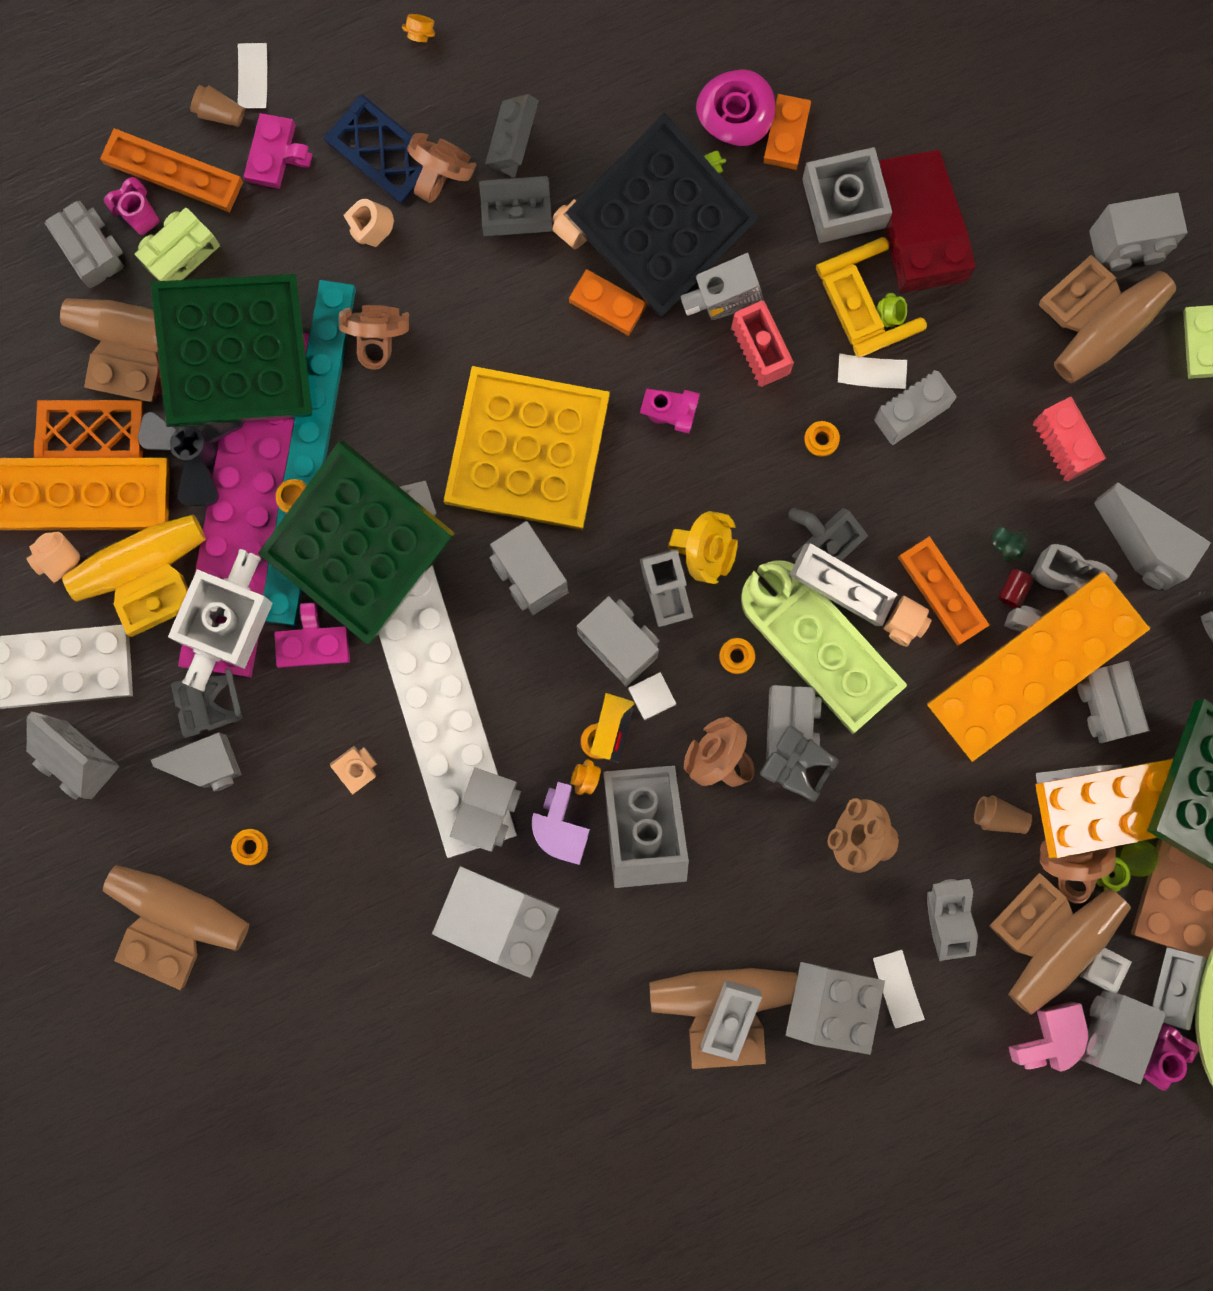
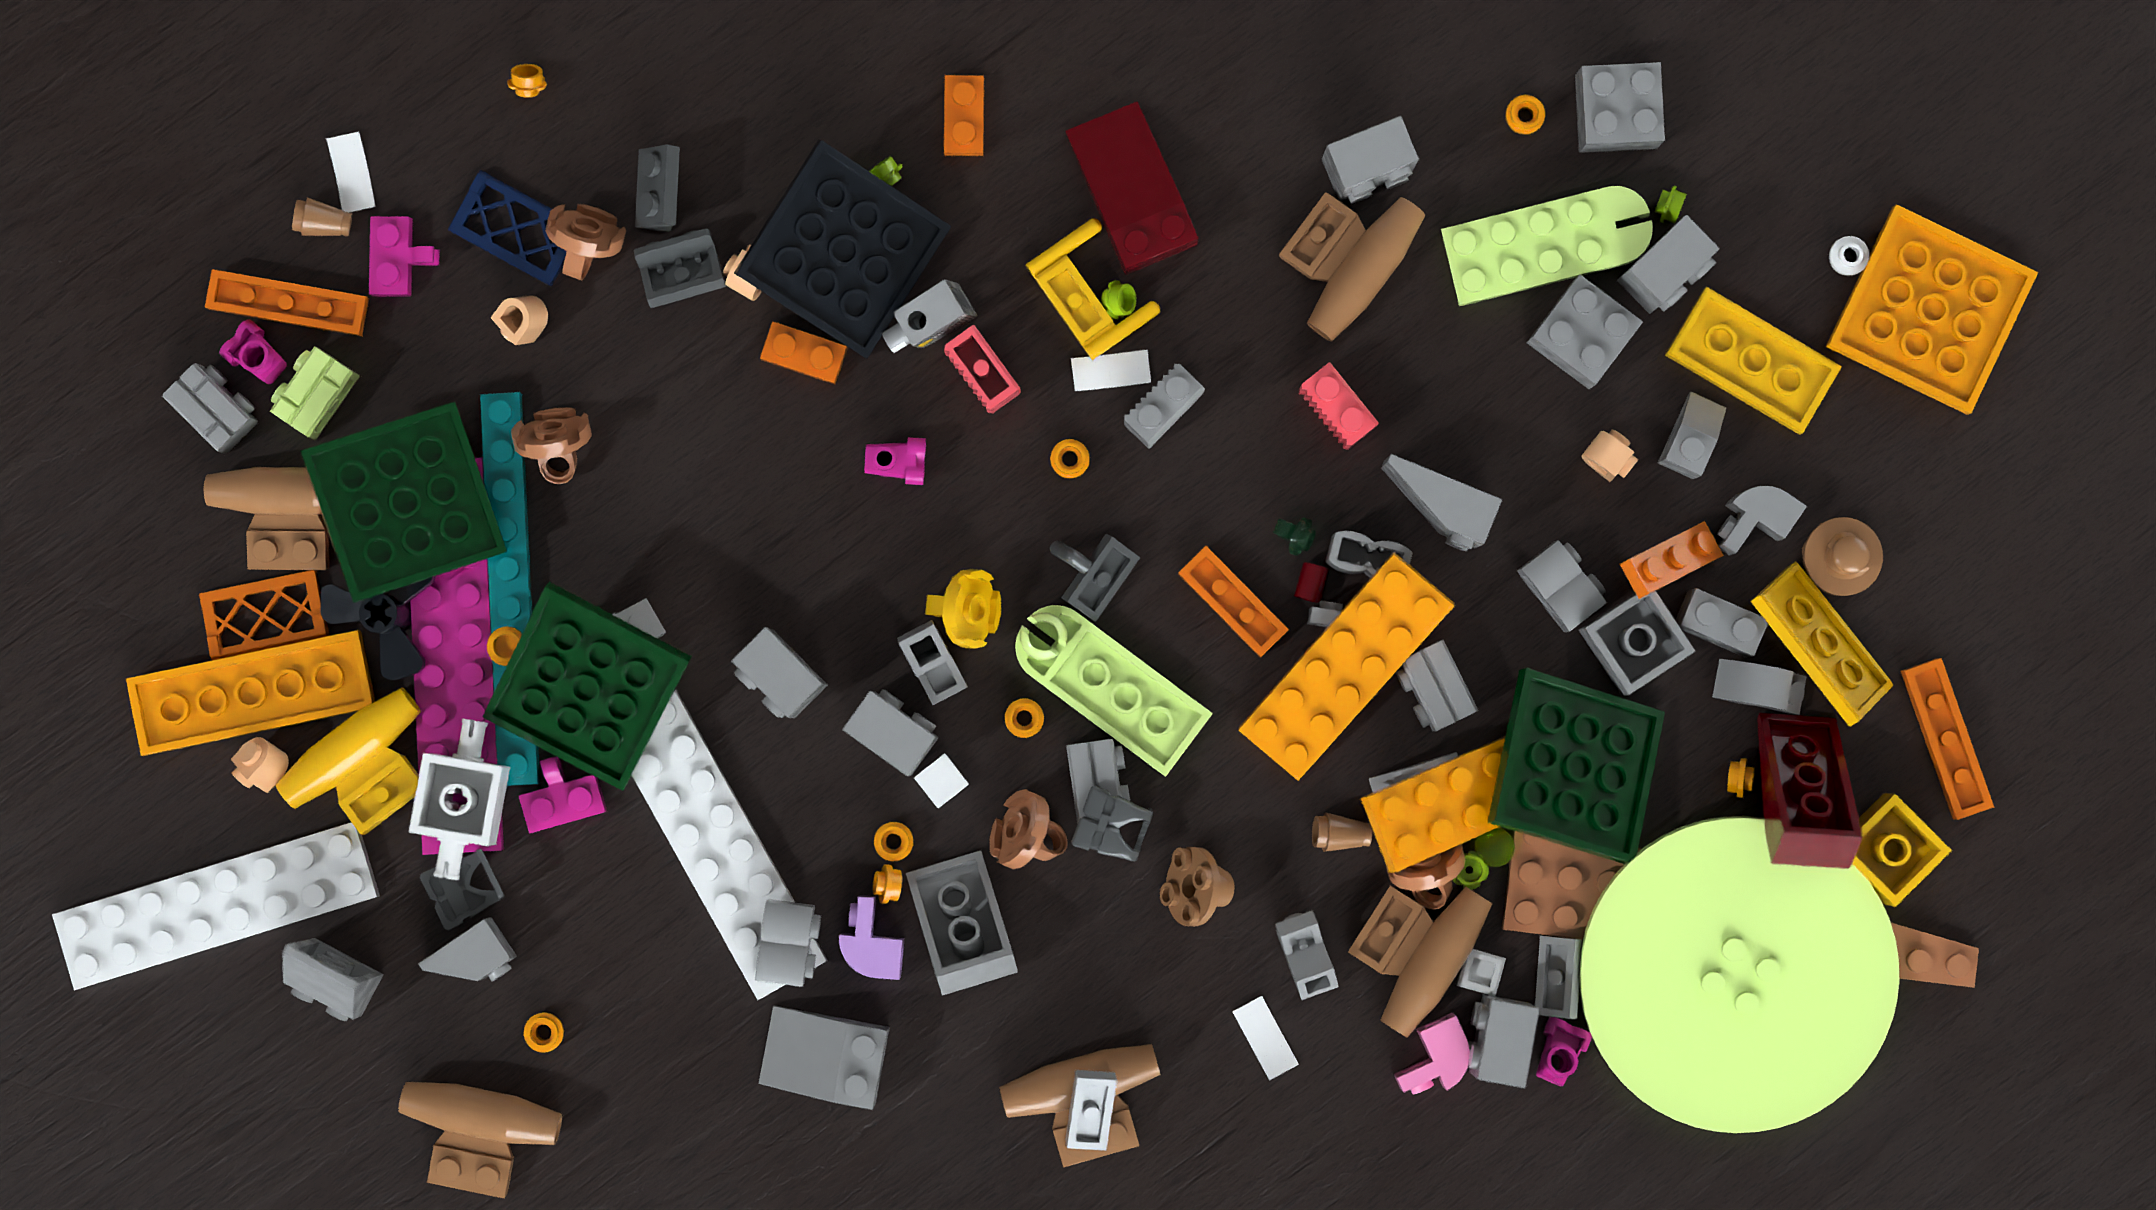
camera: 10 degrees left, 5 degrees up
(354, 768) = (638, 926): light nougat plate -> none
(527, 448) = (749, 536): yellow plate -> none
(612, 728) = (905, 824): yellow sticker -> none
(737, 107) = (901, 103): dark pink hat -> none
(835, 1008) = (1198, 1074): light grey brick -> none
(843, 584) = (1122, 619): plate -> none
(846, 195) = (1042, 181): light grey brick -> none
(907, 621) = (1200, 642): light nougat plate -> none

